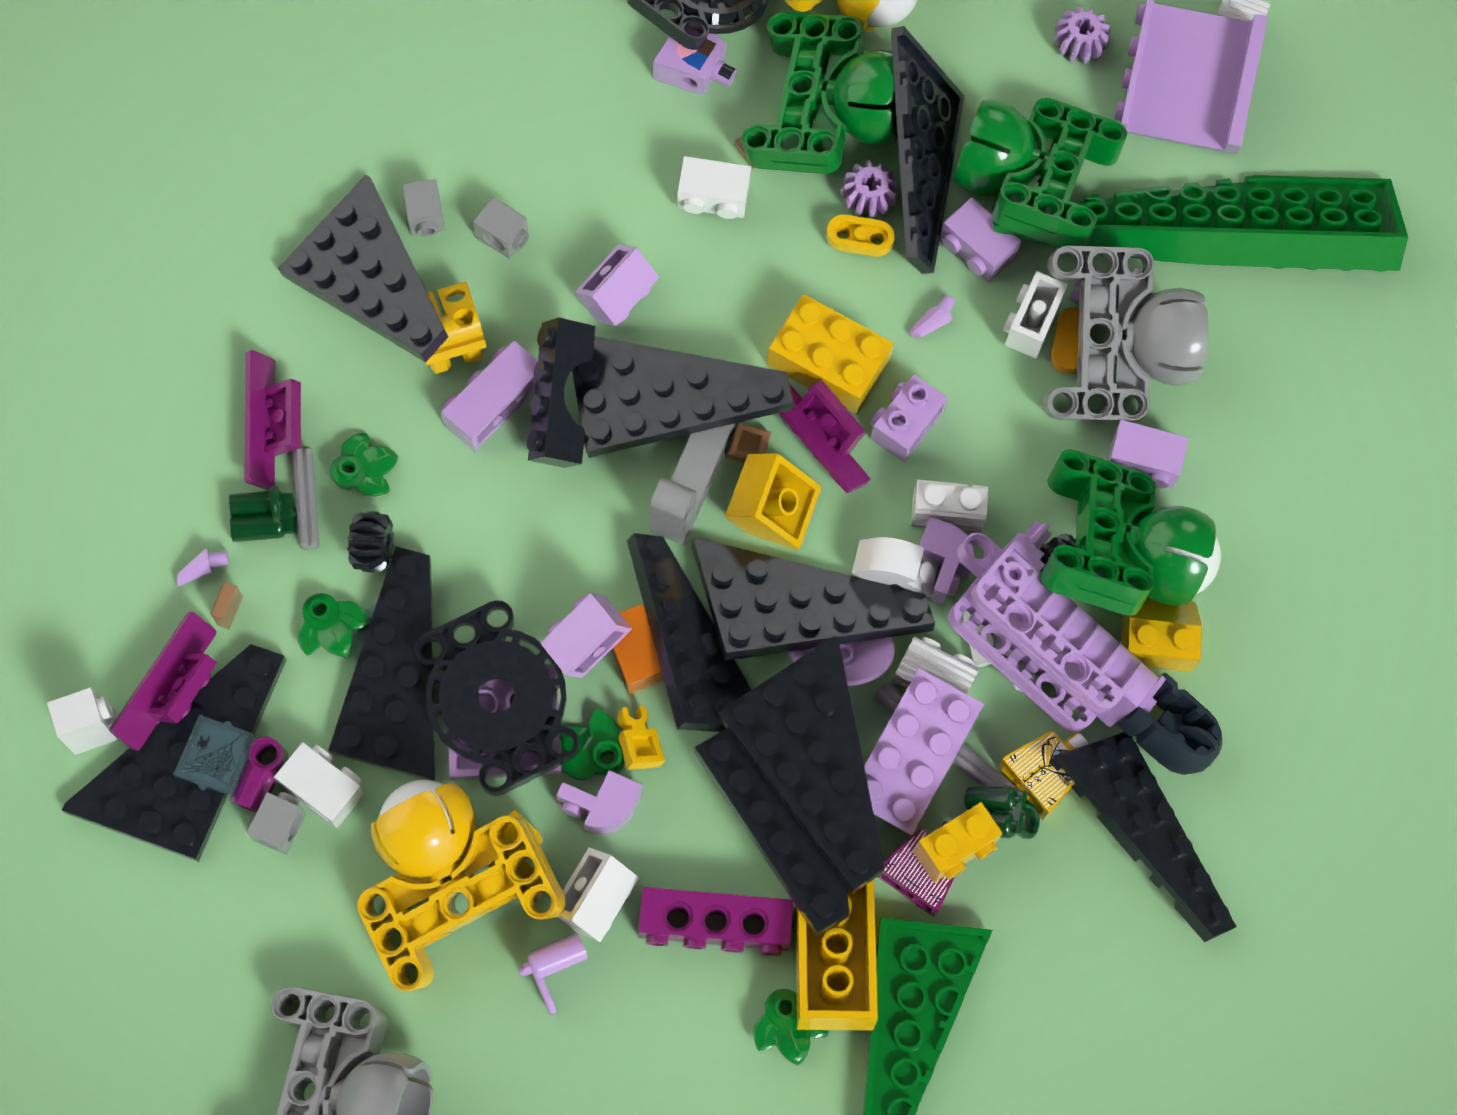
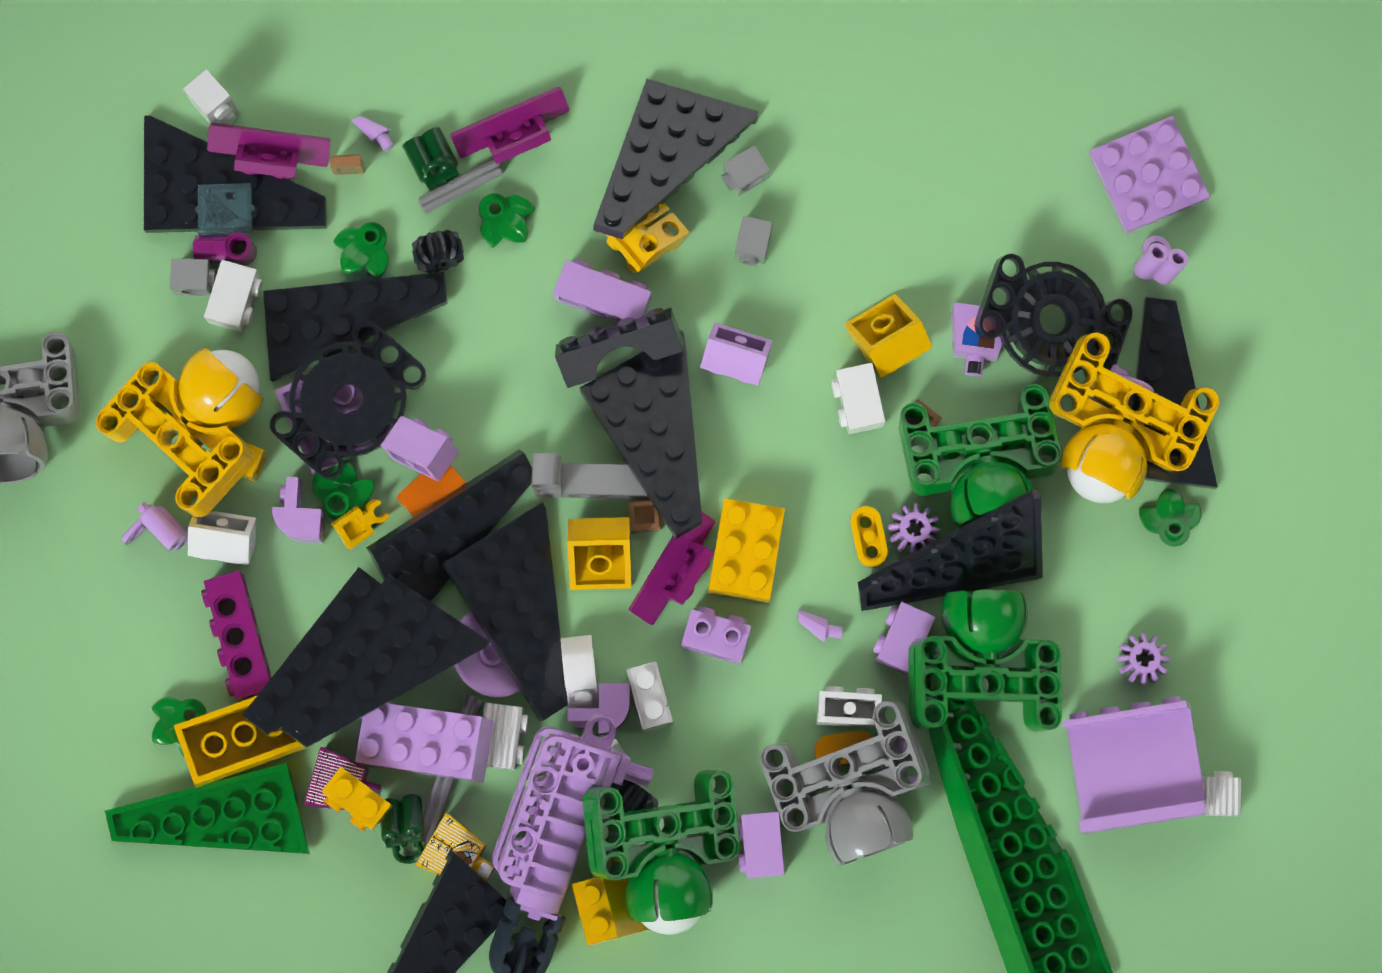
camera: 75 degrees right, 10 degrees up
(657, 138) = (889, 335): none -> yellow slope

